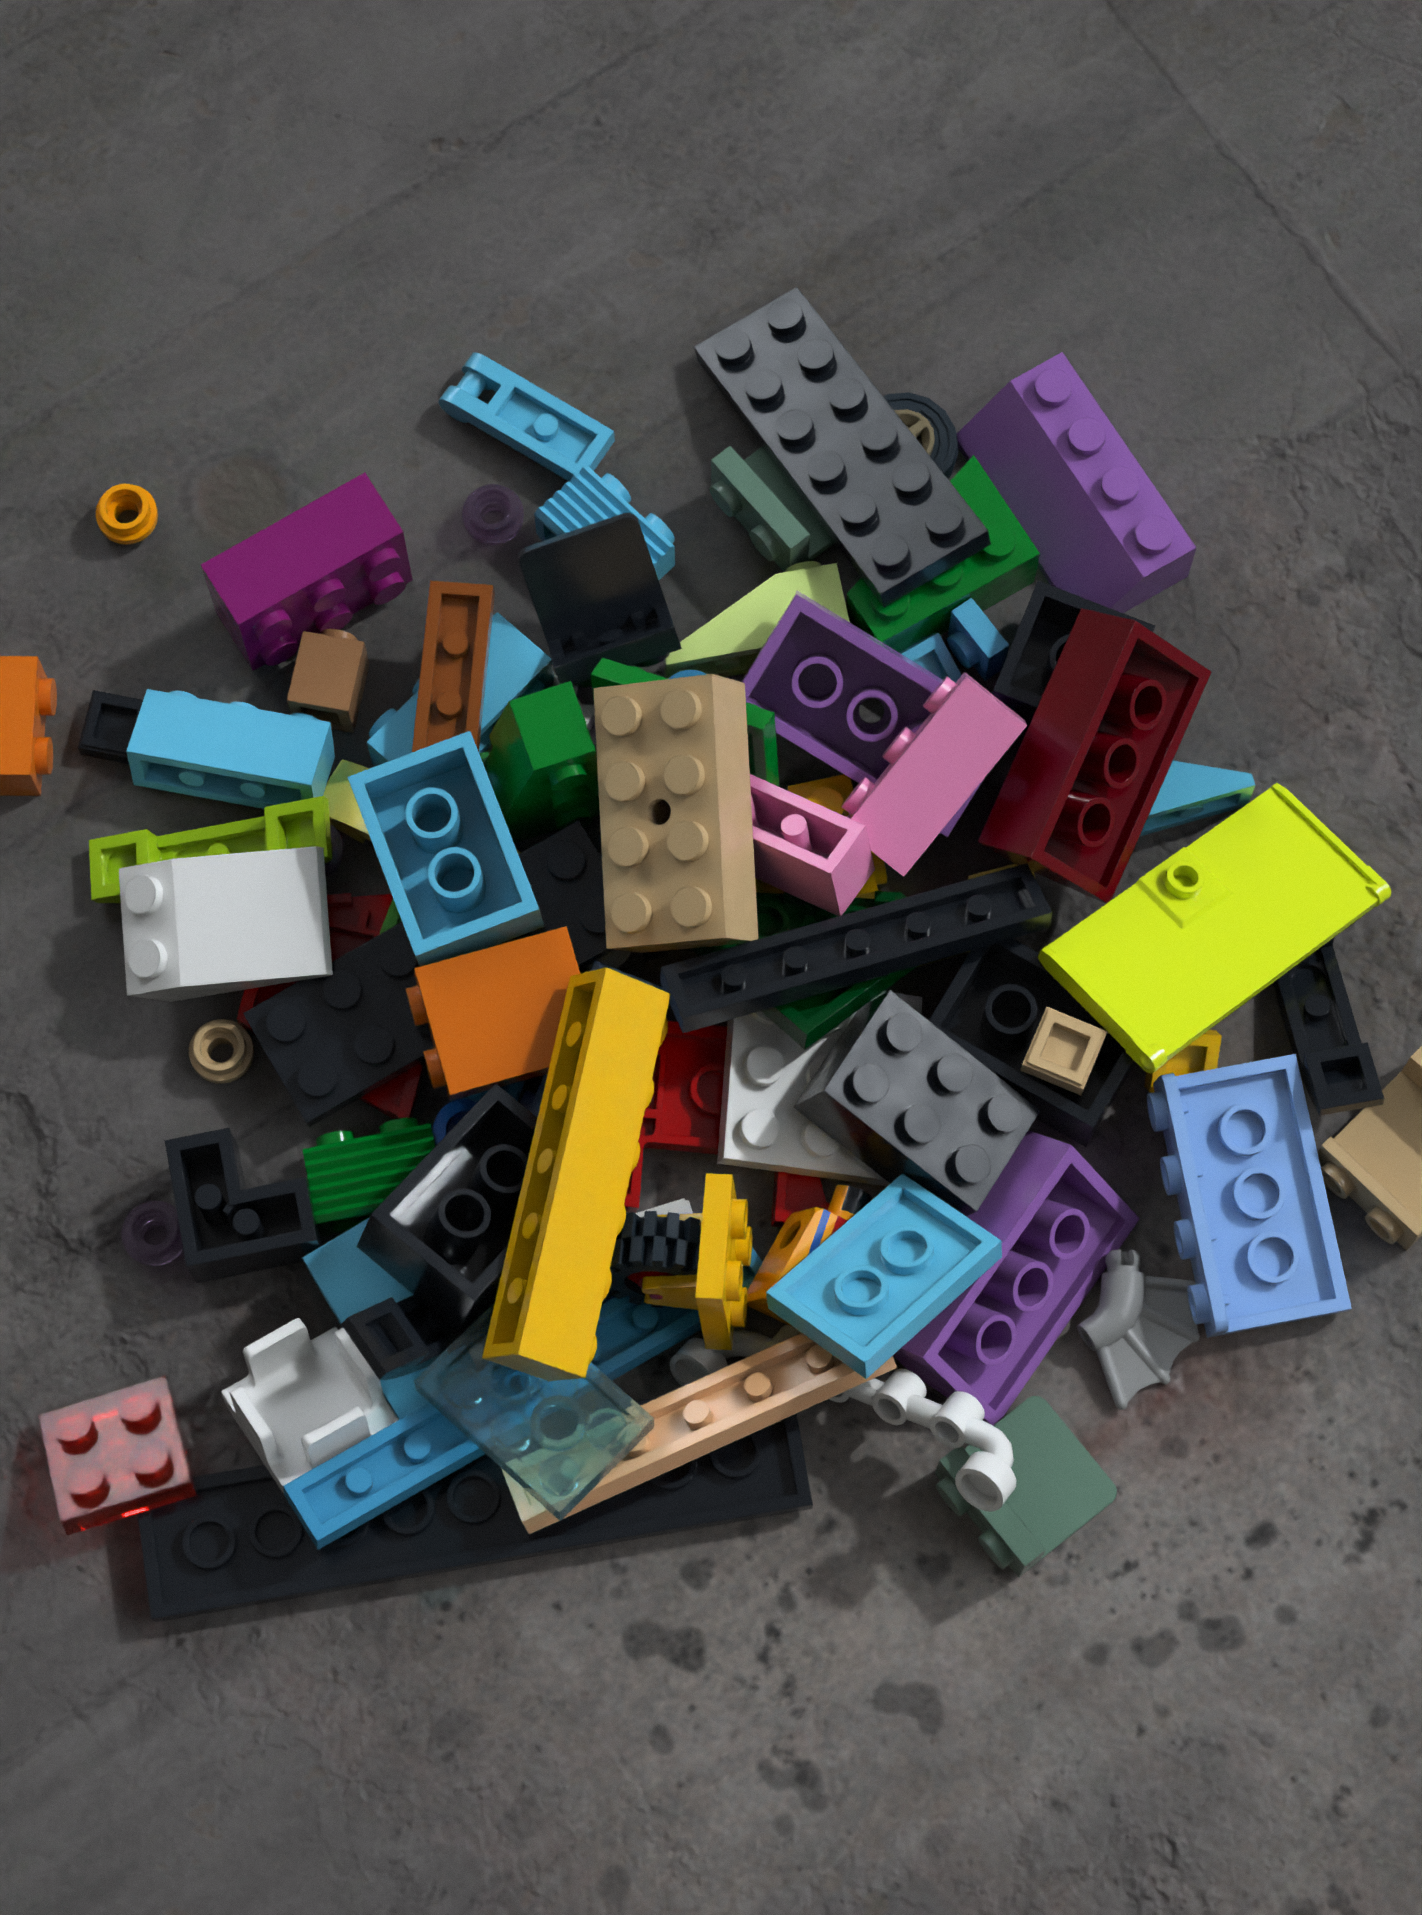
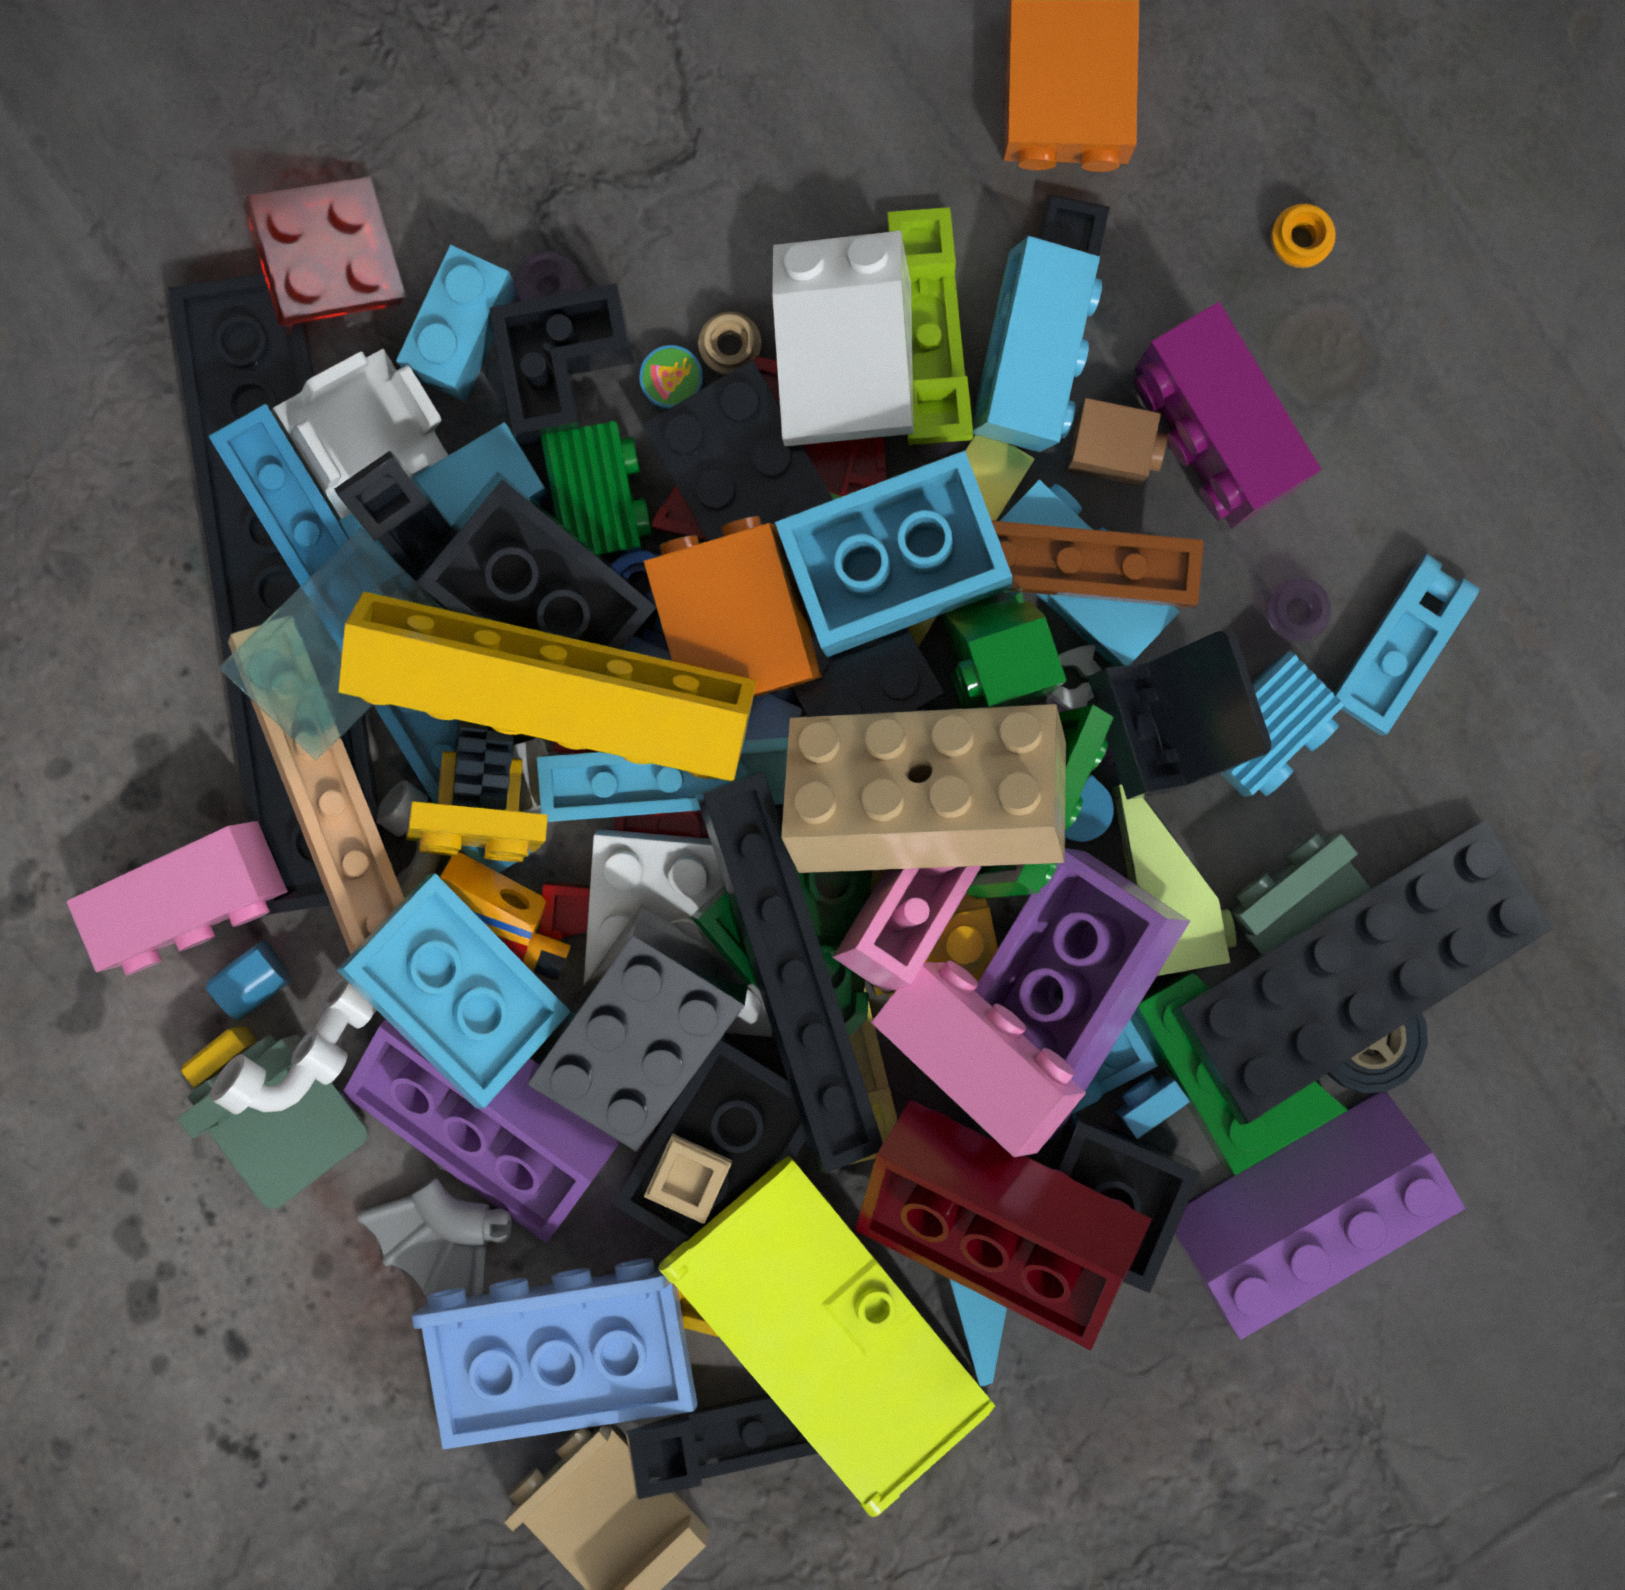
camera: 90 degrees right, 15 degrees up
(195, 1314) = (455, 323): none -> medium azure brick
(255, 1109) = (670, 376): none -> tile
(674, 1122) = (610, 786): none -> medium azure plate
(798, 1585) = (178, 899): none -> bright pink brick
(879, 1520) = (249, 981): none -> dark azure brick
(960, 1546) = (217, 1055): none -> yellow tile

